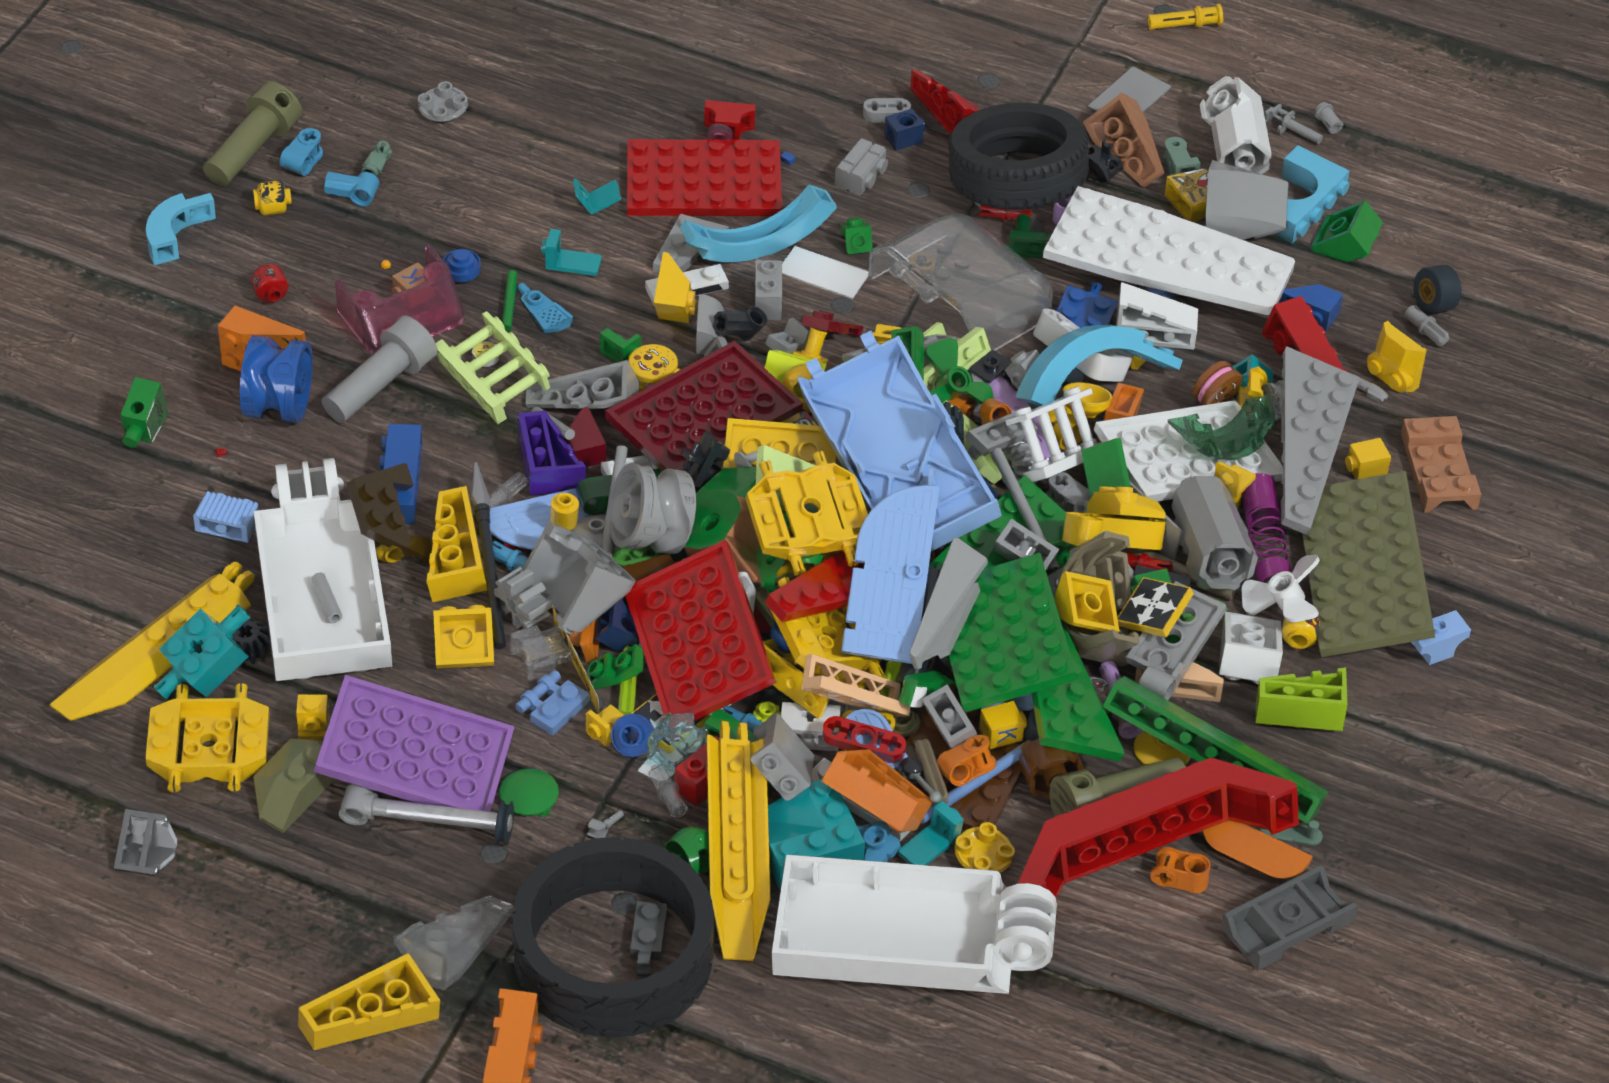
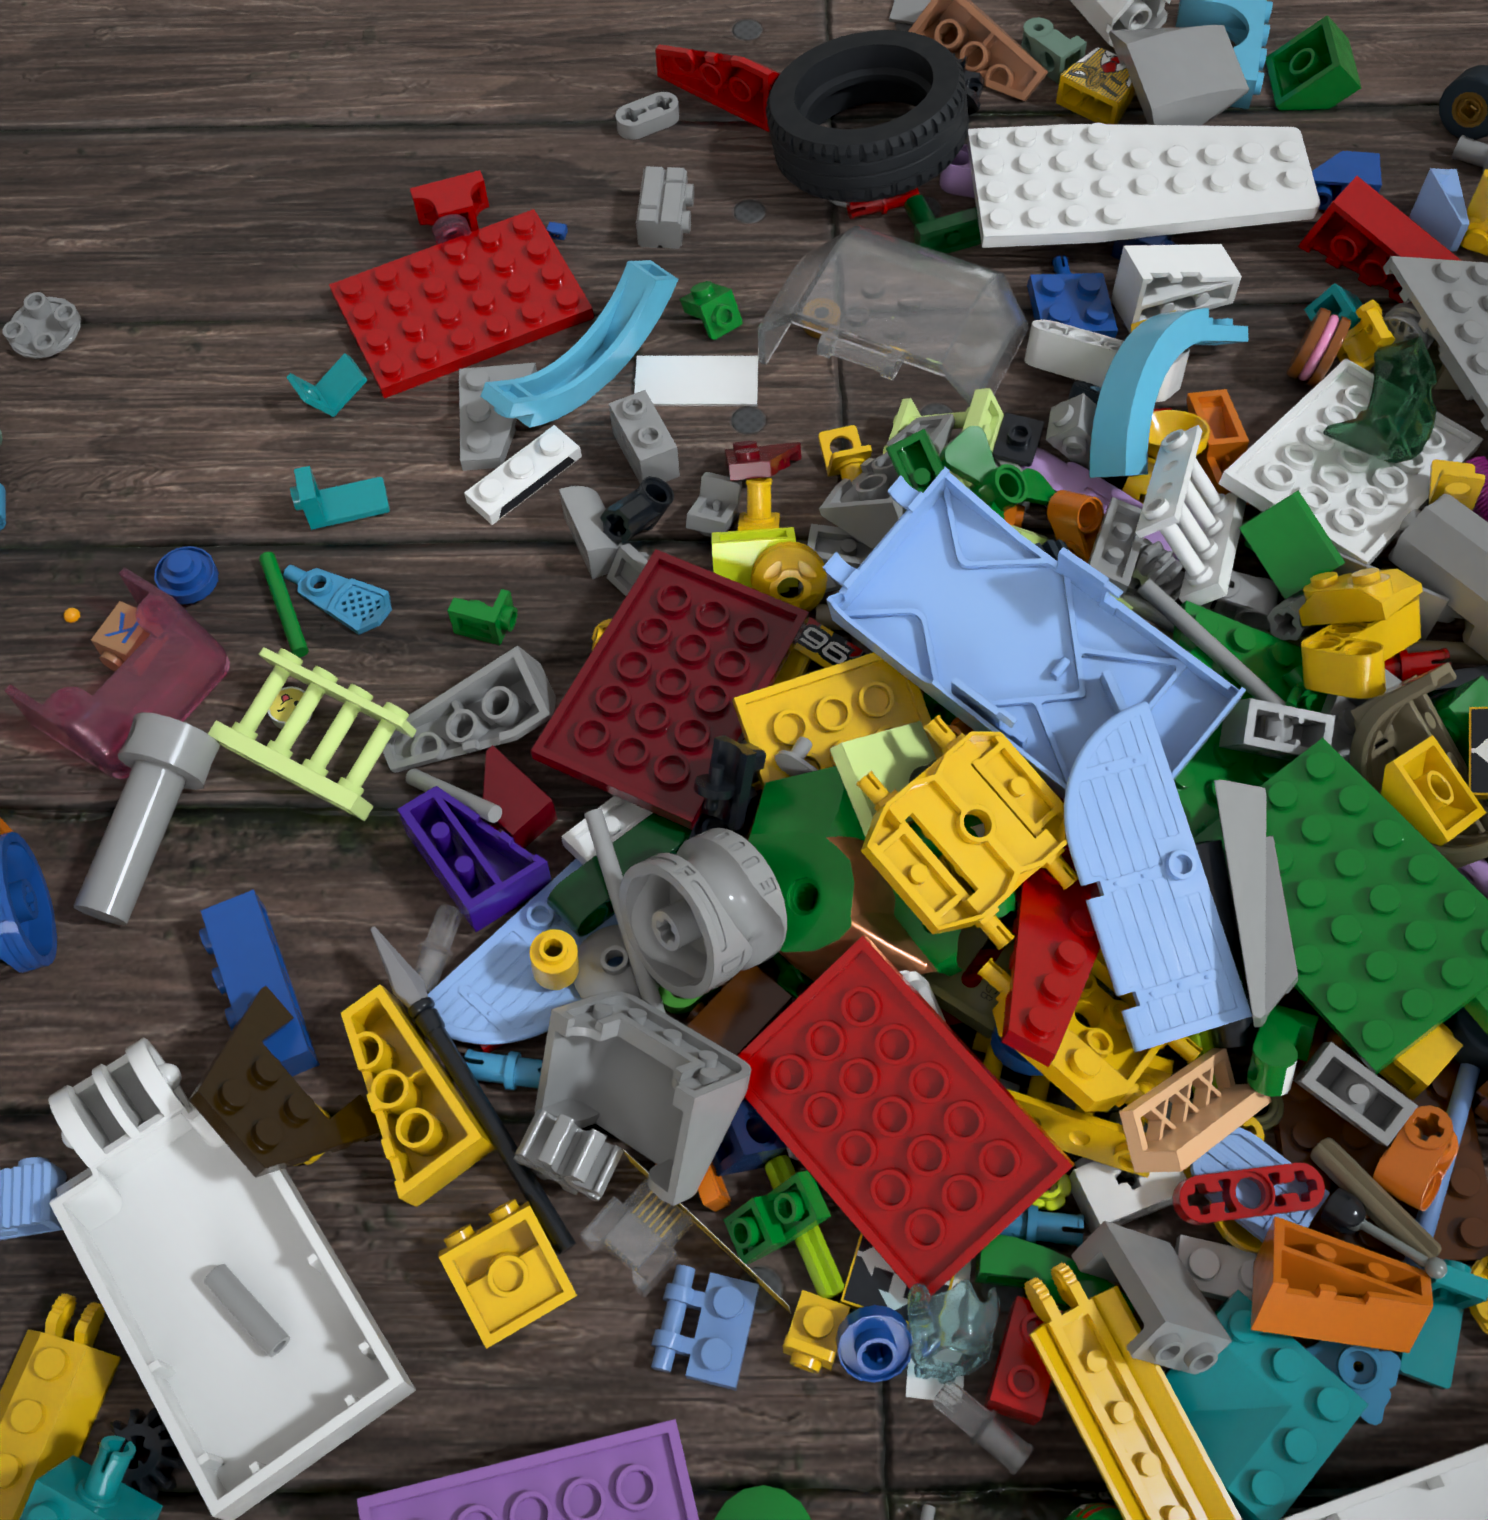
camera: 20 degrees left, 15 degrees up
(652, 364) = (550, 631): yellow head -> none
(673, 293) = (524, 500): yellow slope -> none
(904, 129) = (687, 133): dark blue brick -> none
(1362, 337) = (1442, 208): none -> light blue slope

